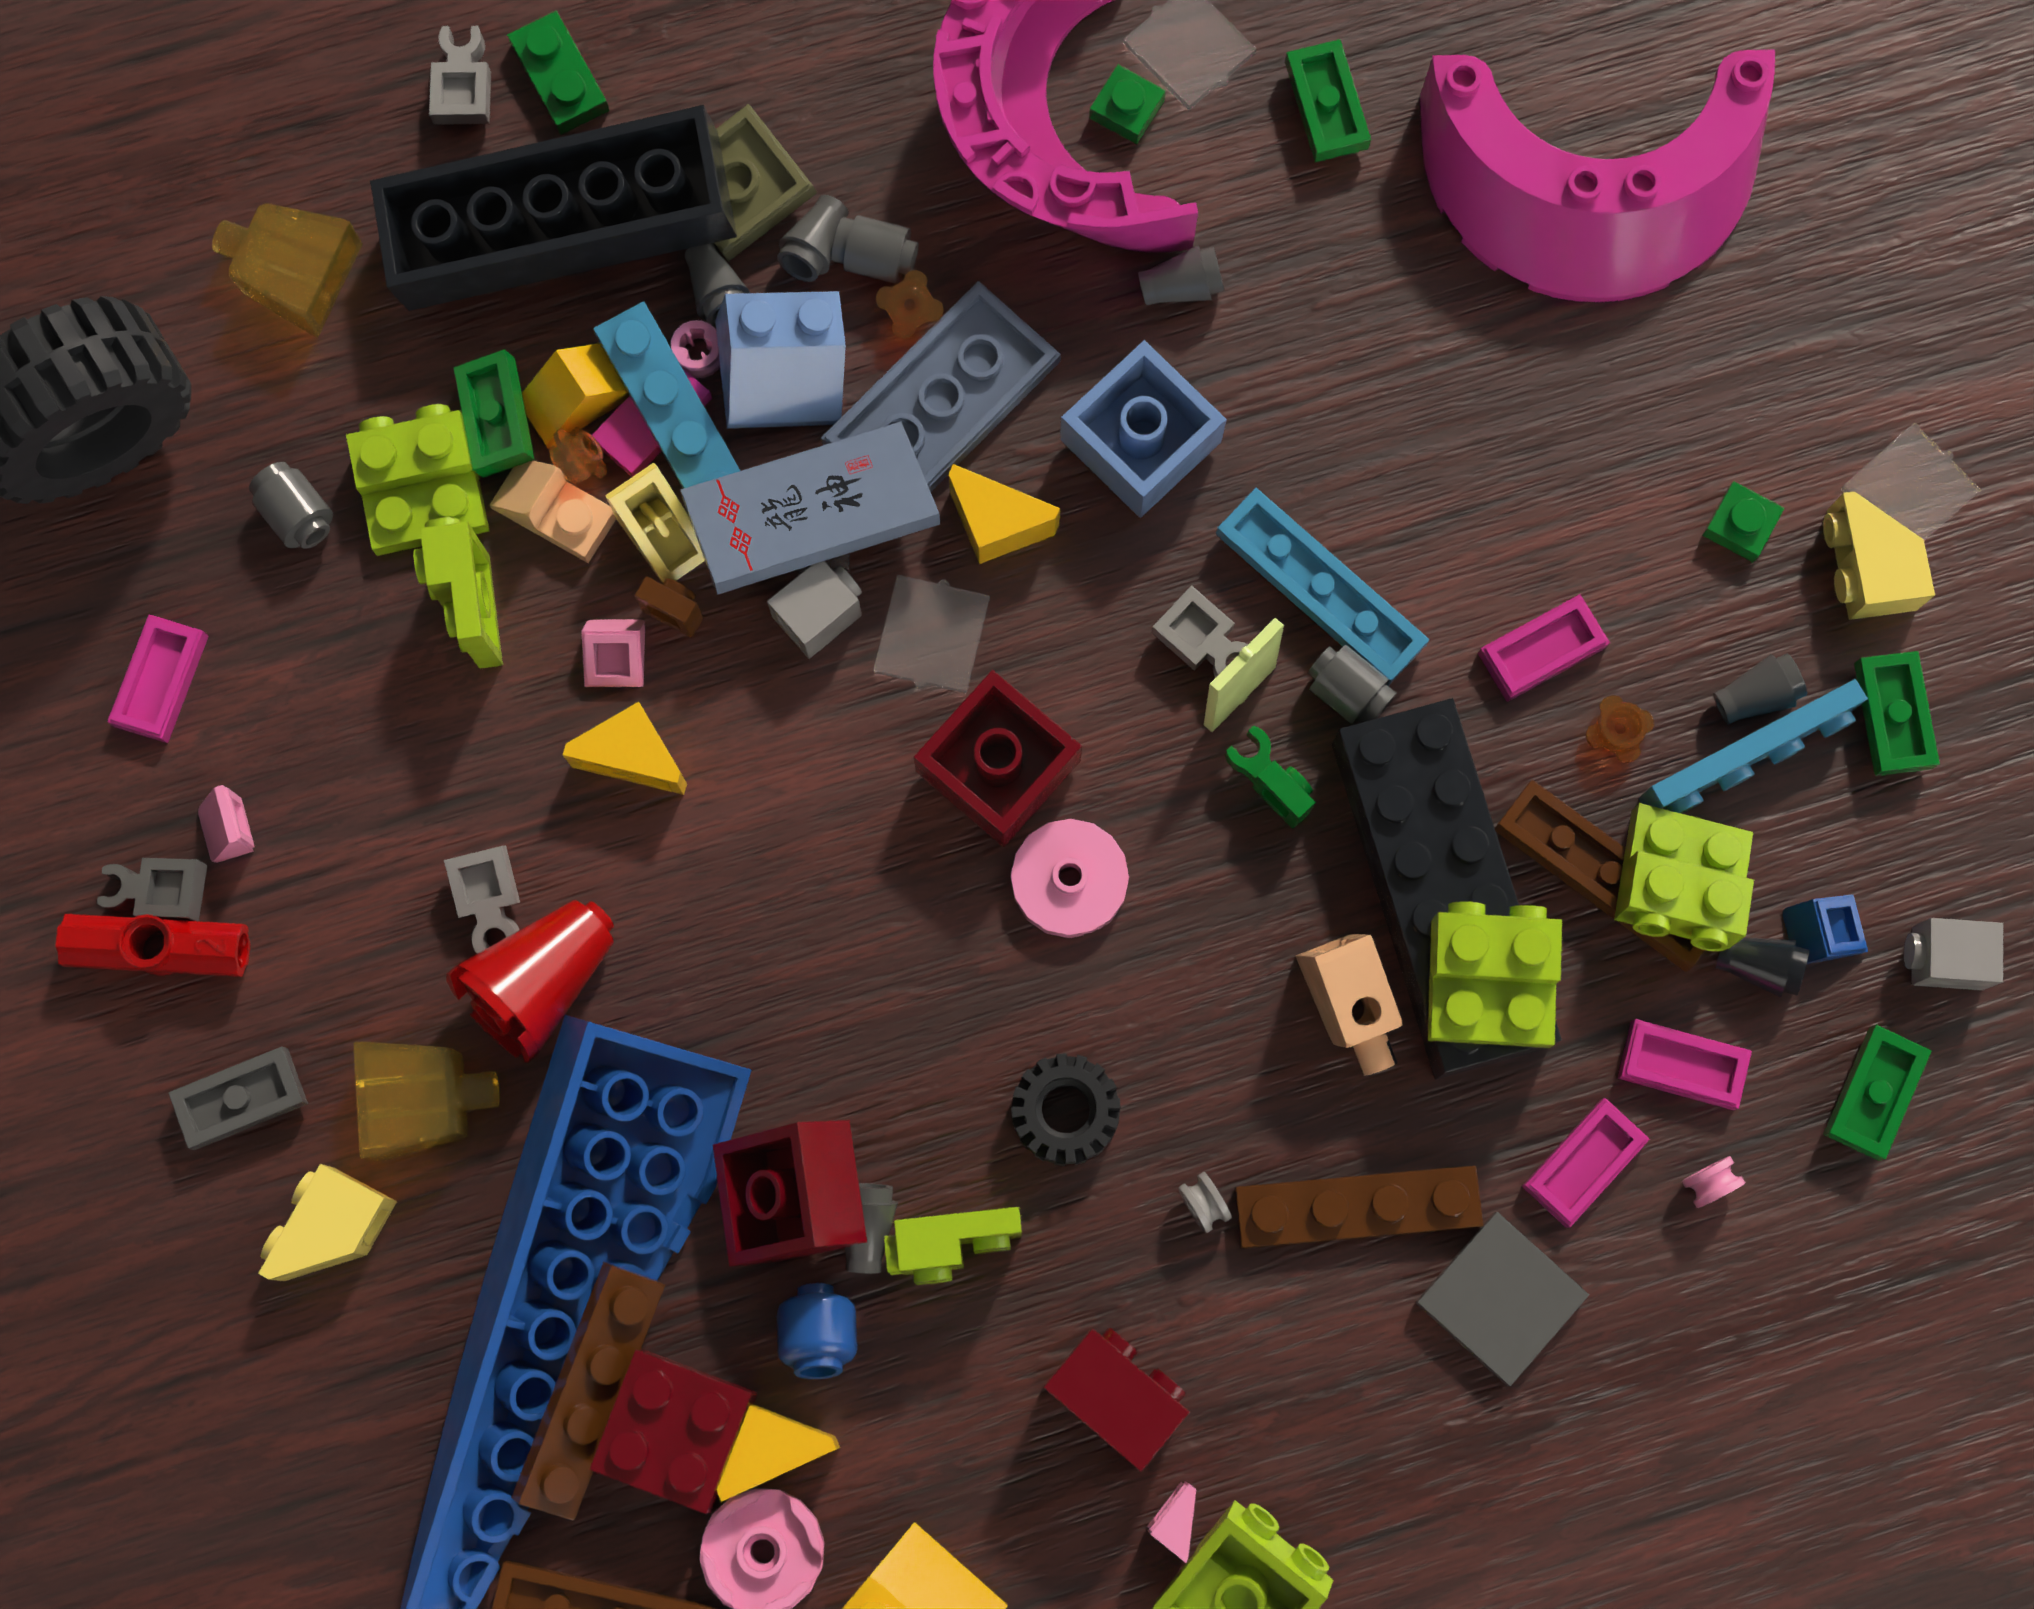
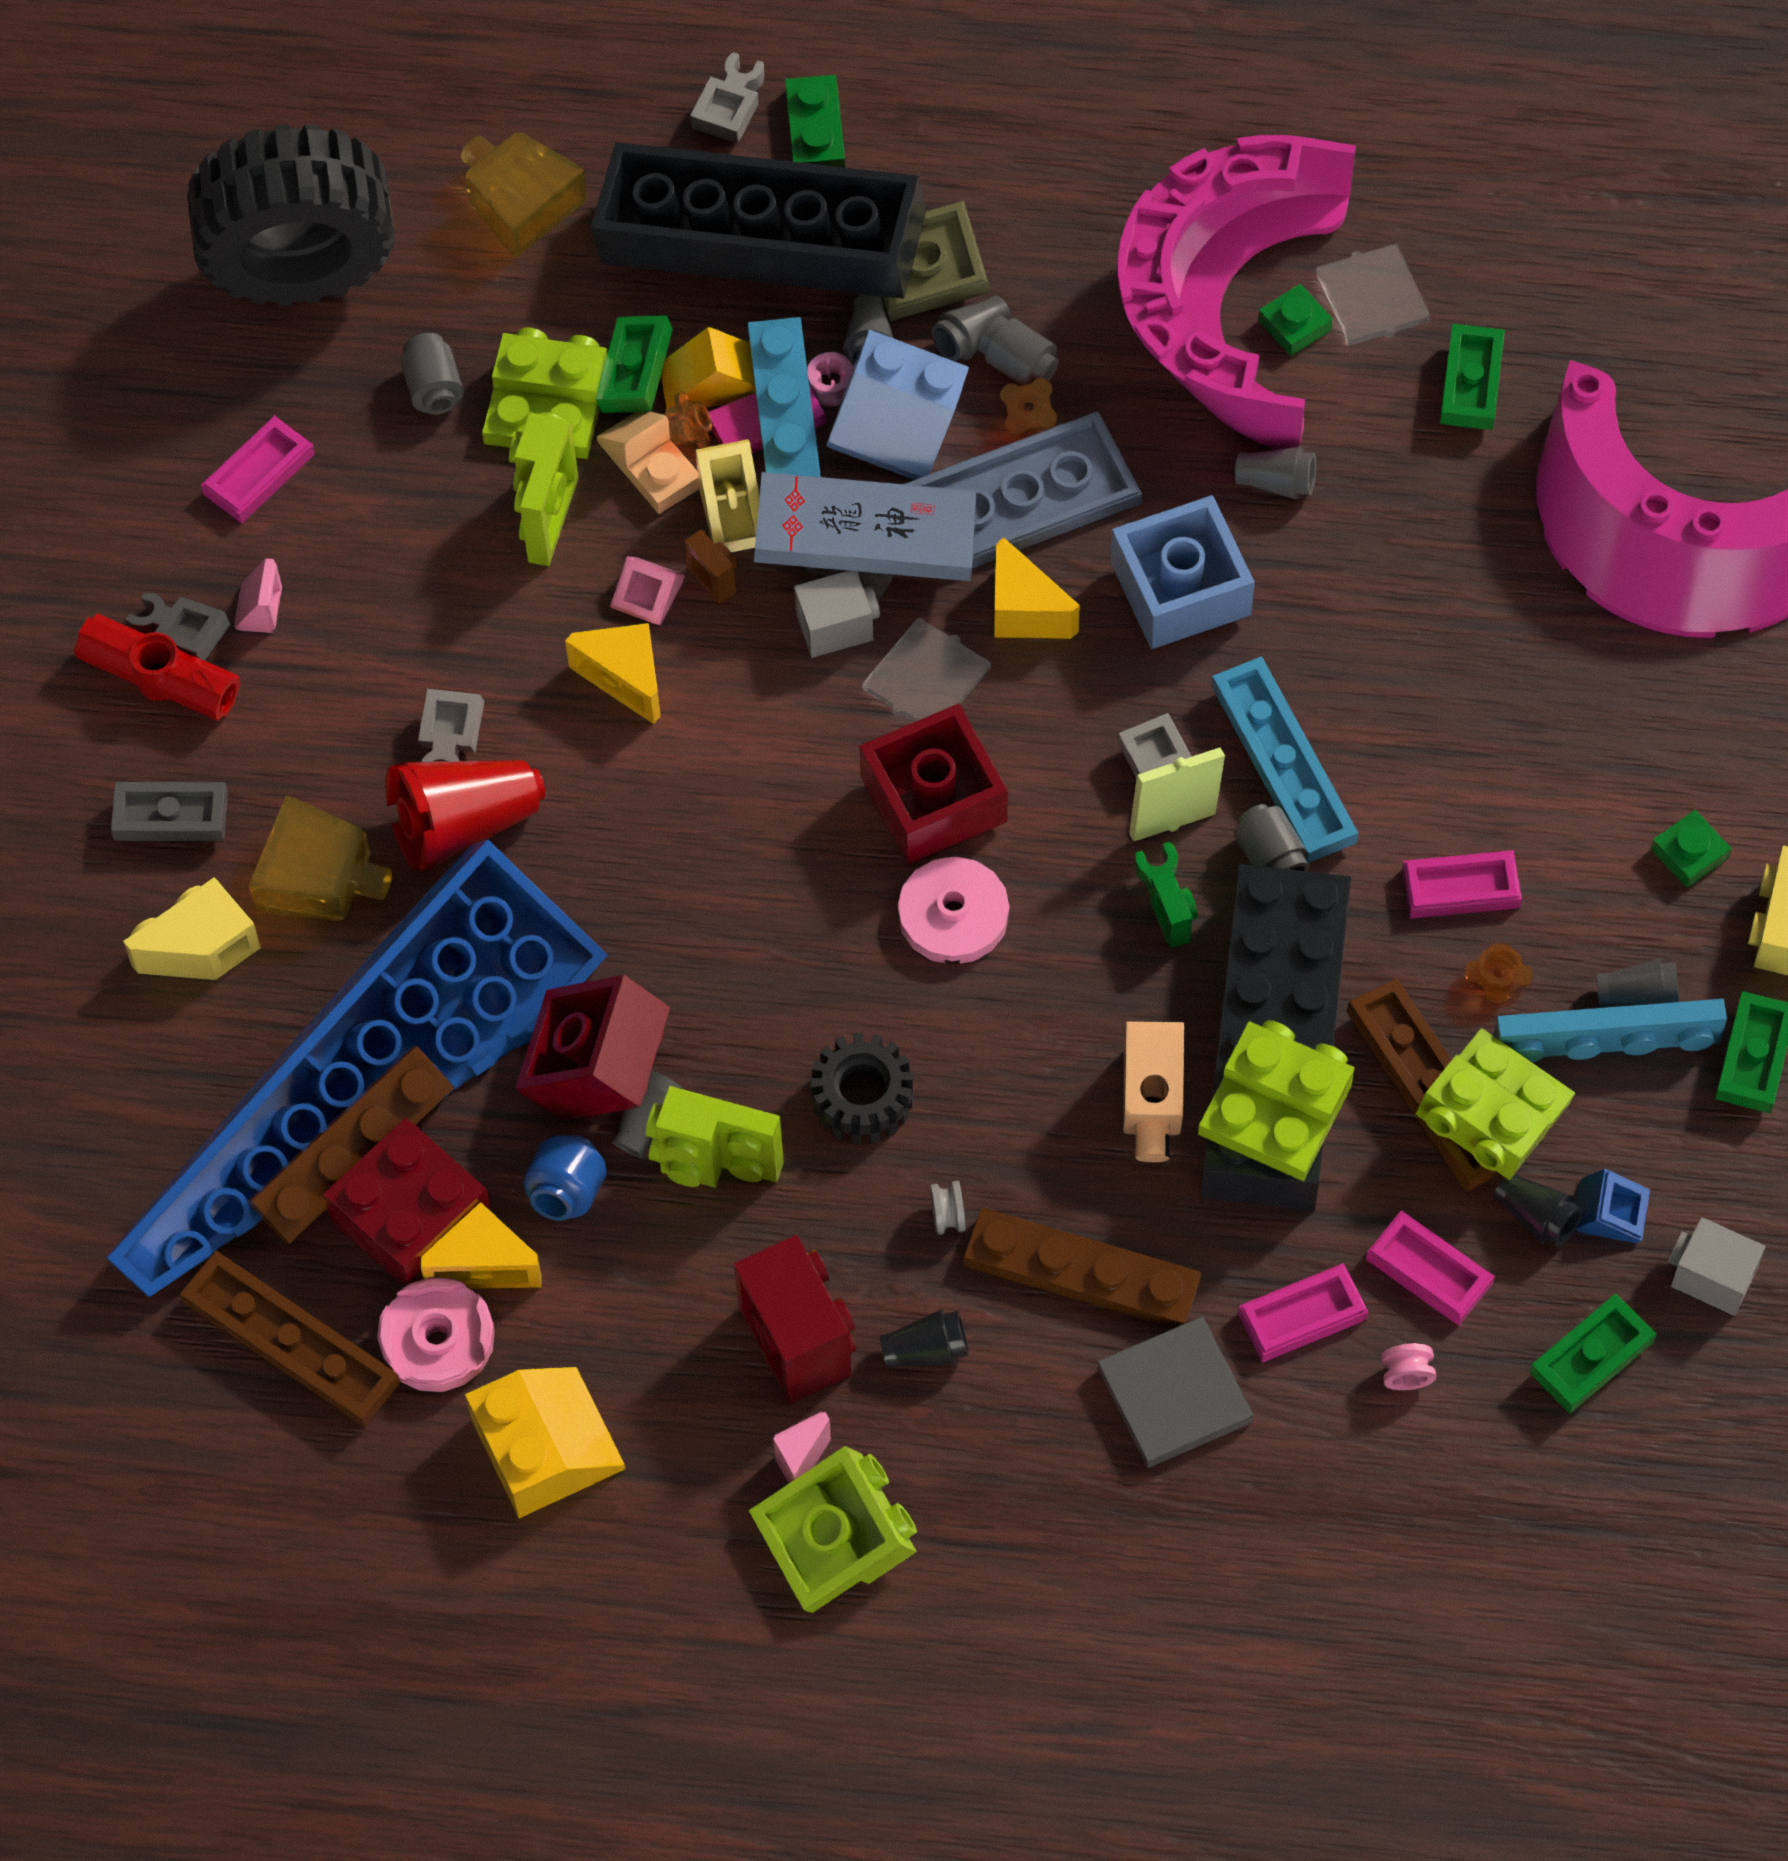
camera: 25 degrees right, 15 degrees down
(1246, 1352) = (927, 1341): none -> black cone

